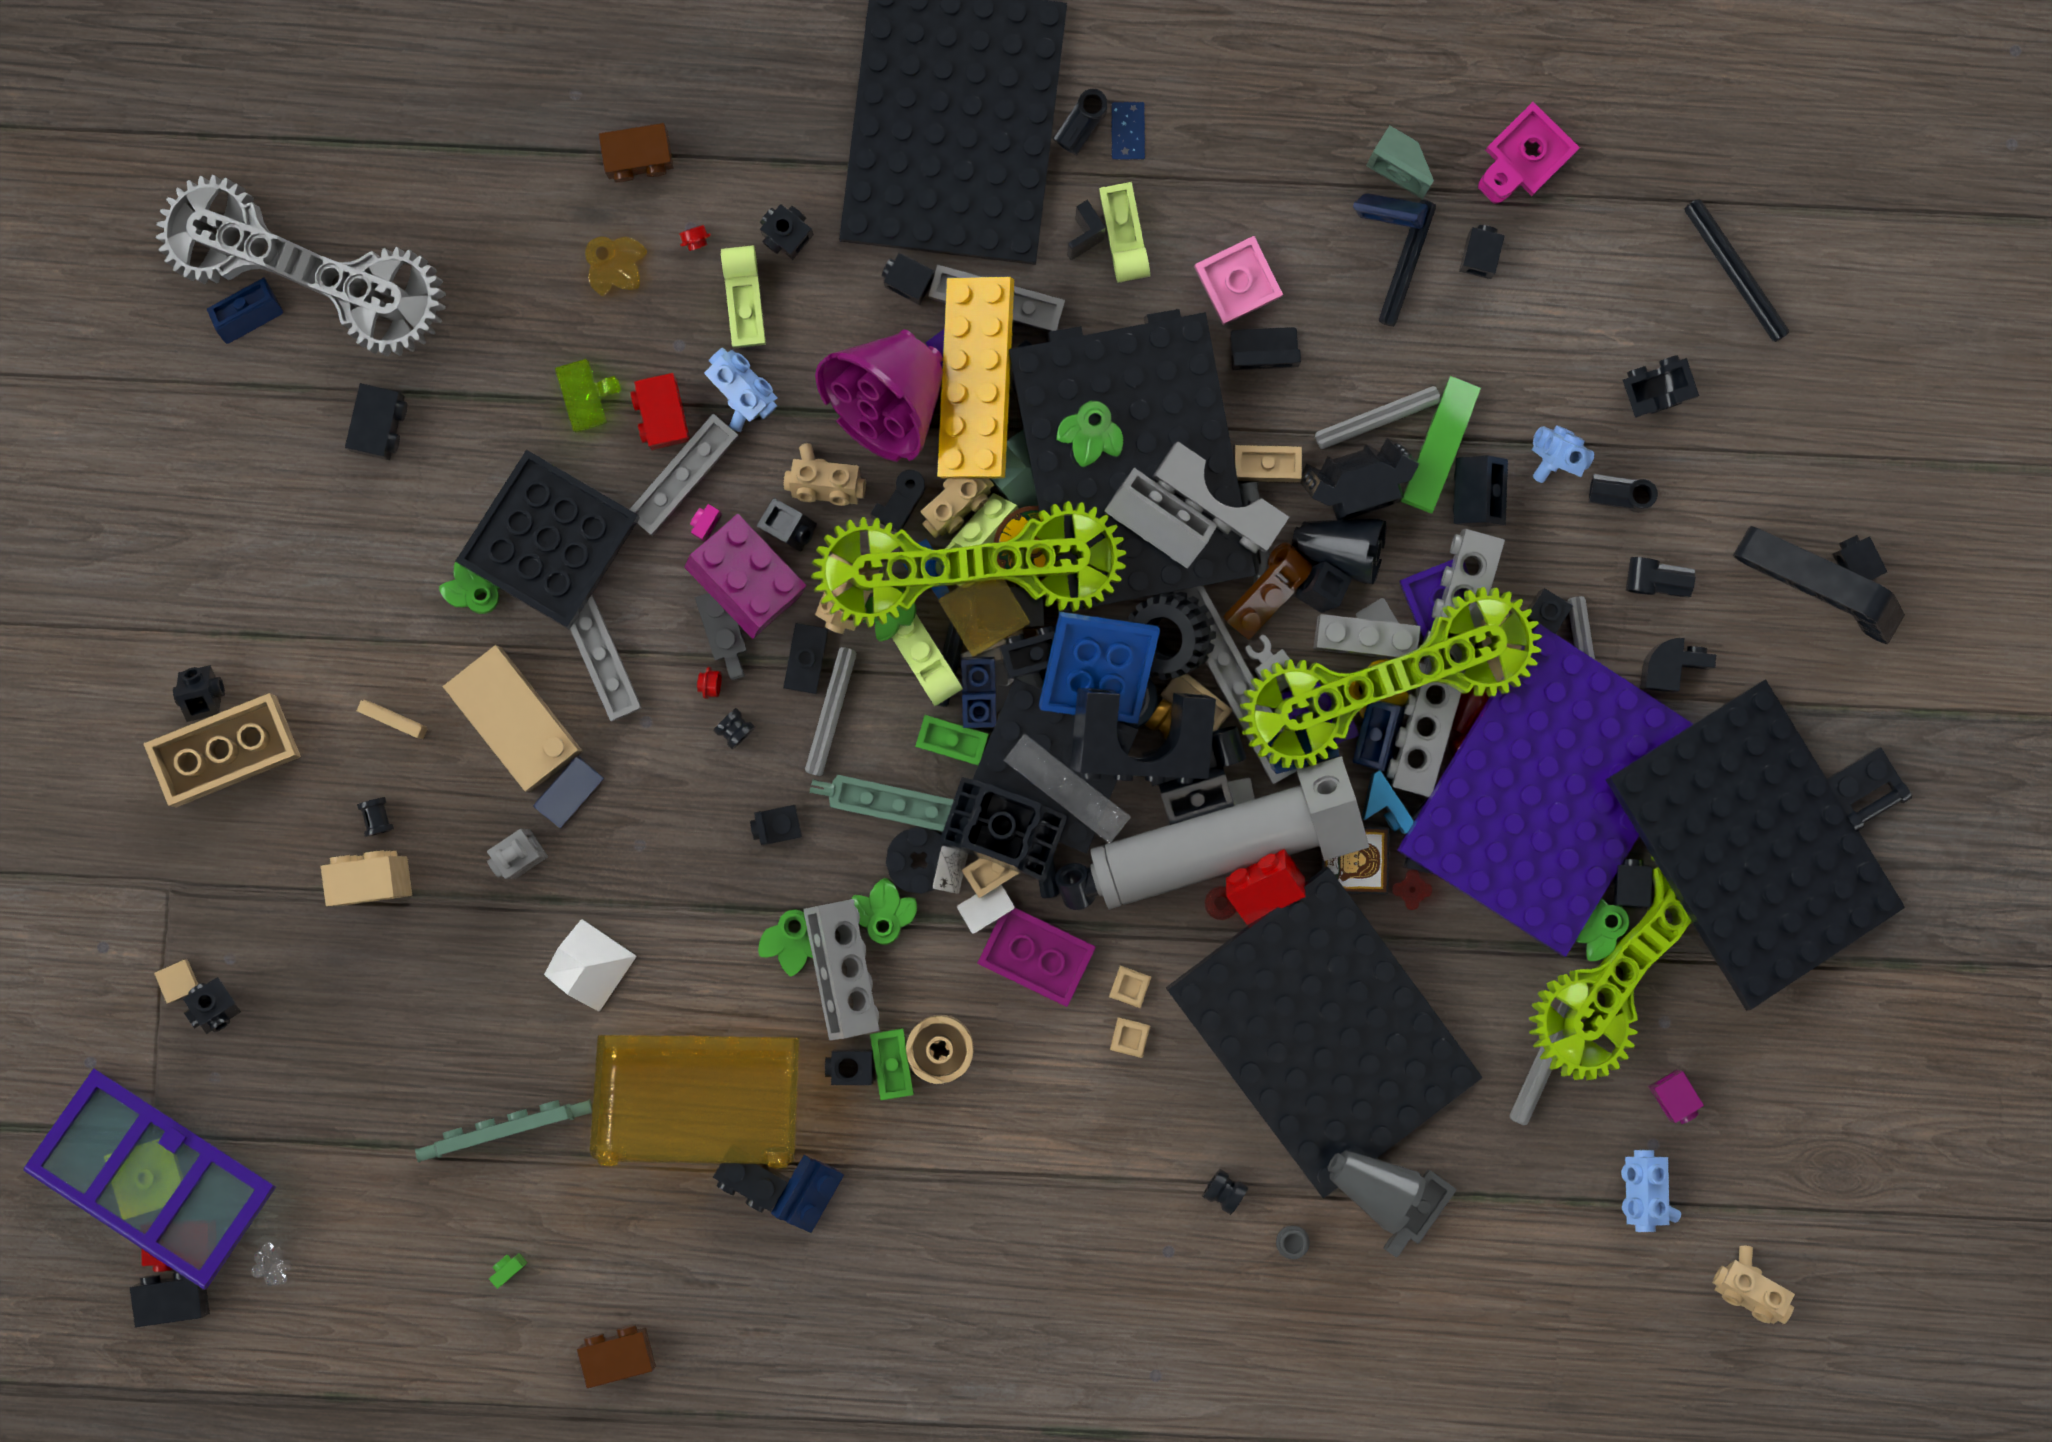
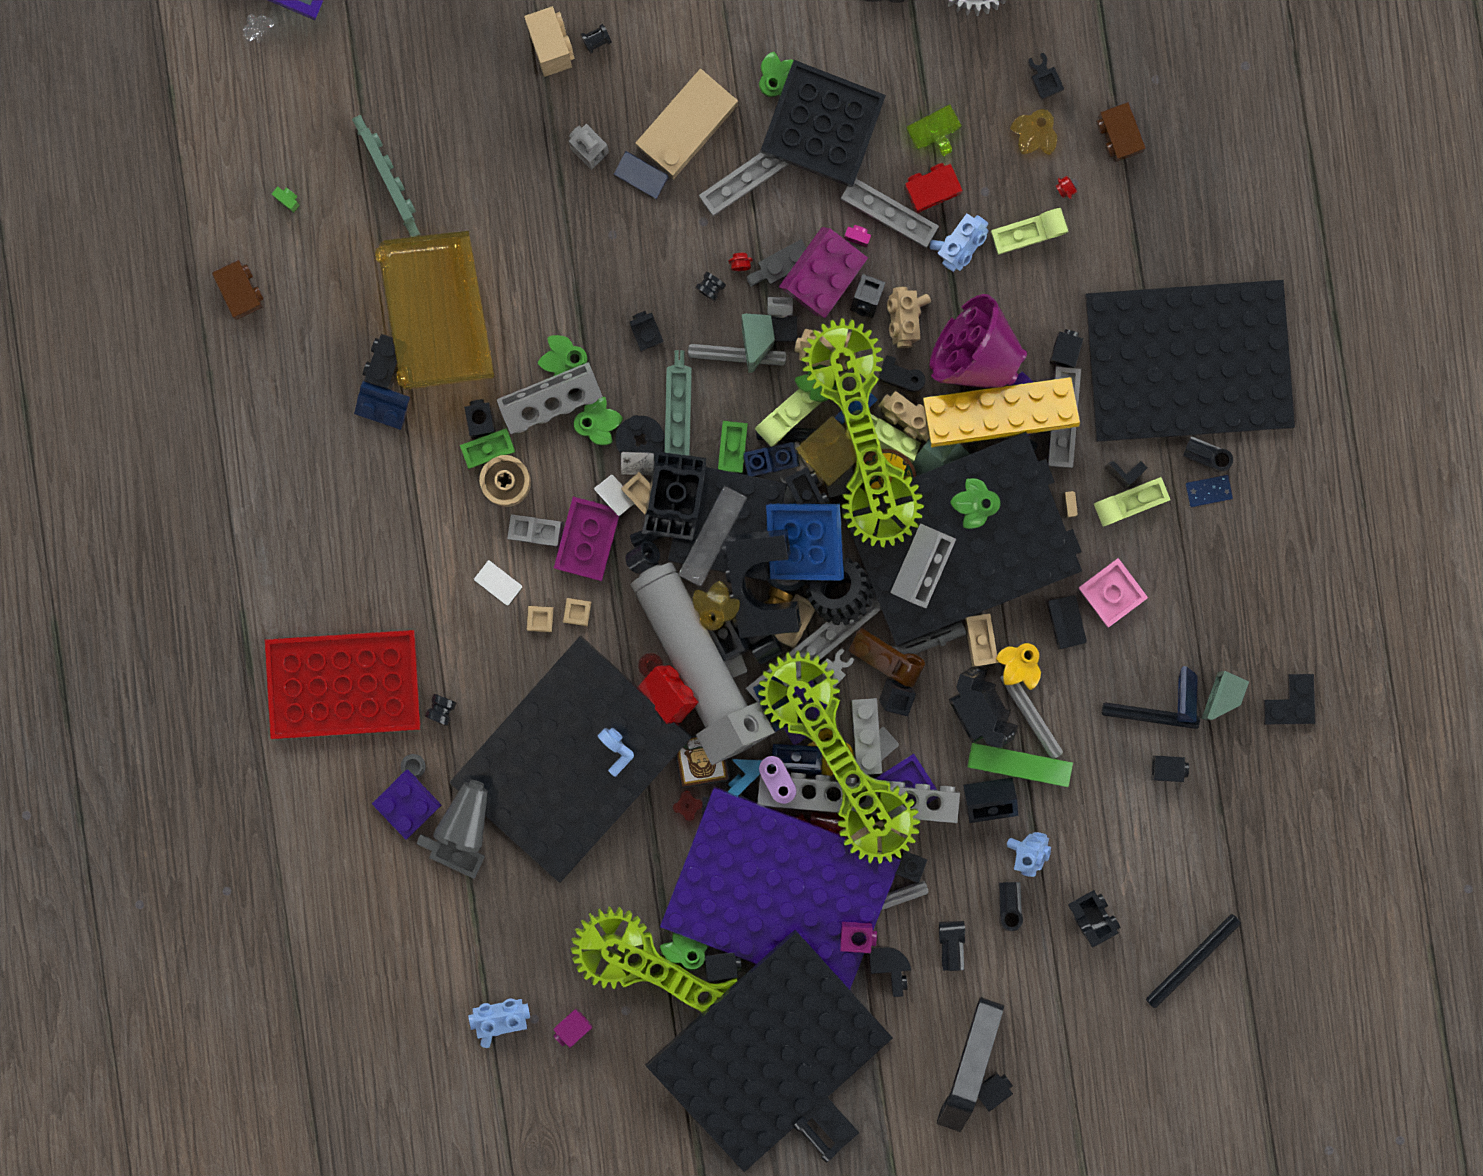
camera: 75 degrees right, 0 degrees up
(392, 719) = (669, 37): tan tile -> none
(549, 236) = (1046, 80): none -> black plate
(589, 965) = (517, 215): white slope -> none
(778, 642) = (780, 306): none -> light grey plate
(790, 241) = (1083, 261): black brick -> none
(815, 679) = (757, 338): none -> sand green slope
(1012, 1021) = (535, 530): none -> light grey slope
(1071, 1083) = (498, 583): none -> white sticker
(1112, 313) = (1070, 504): none -> tan tile
(1157, 798) = (715, 602): none -> clear yellow plate
(1167, 1315) = (342, 684): none -> red plate
(1184, 473) = (933, 637): light grey arch -> none
(1313, 422) = (1018, 668): none -> yellow plate
(1314, 972) = (612, 740): none -> light blue plate
(1342, 1260) = (406, 804): none -> dark purple plate
(1345, 544) = (931, 707): black cone -> none
(1404, 764) = (777, 779): none -> lavender plate
(1433, 71) = (1298, 707): none -> black plate
(1514, 166) = (1236, 784): dark pink plate -> none
(1535, 1080) = (563, 922): light grey axle -> none
(1617, 706) = (851, 928): none -> magenta brick
(1747, 1287) = (443, 1104): tan brick -> none

